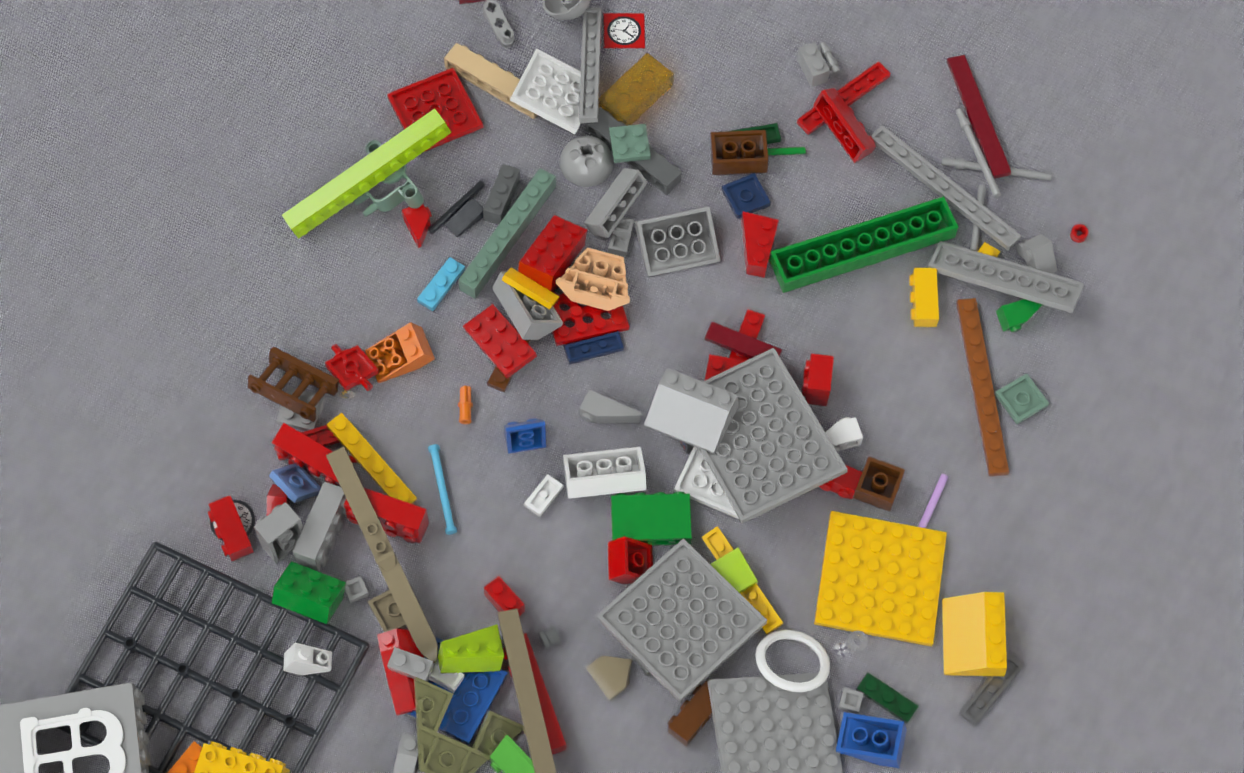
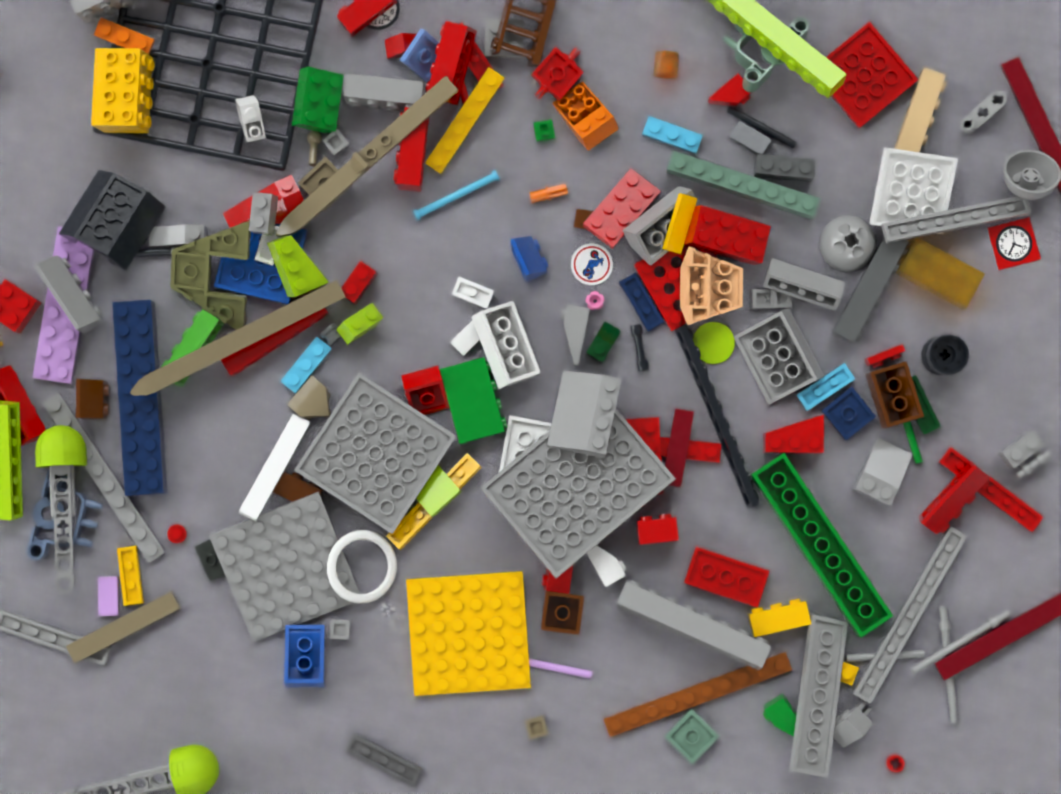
camera: 75 degrees right, 20 degrees up
(279, 532) = (365, 55): light grey brick -> none
(345, 611) = (314, 139): none -> dark tan bar
(373, 270) = (666, 64): none -> clear orange piece
(402, 395) = (544, 130): none -> green tile
(544, 384) = (591, 264): none -> white sticker
(547, 604) = (359, 323): none -> lime brick
(573, 672) = (306, 365): none -> medium azure plate
(581, 383) = (595, 295): none -> bright pink plate
(586, 511) = (466, 339): none -> white tile
(621, 357) = (636, 331): none -> black bar
(625, 389) = (603, 342): none -> dark green slope
(629, 143) = (872, 281): sand green plate -> none
(649, 295) = (714, 342): none -> lime sticker
(672, 720) = (274, 467): none -> white tile
(699, 146) = (877, 360): none -> red plate
(712, 102) = (955, 350): none -> black wheel
(720, 305) = (720, 423): none -> black plate
(721, 219) = (825, 387): none -> medium azure plate
(808, 181) = (882, 472): none -> light grey slope
(875, 333) = (726, 576): none -> red plate
(887, 698) = (352, 663): dark green plate -> none
(916, 367) = (693, 626): none -> light grey brick
(974, 635) = (431, 733): yellow slope -> none
(986, 536) = (536, 727): none -> dark tan plate

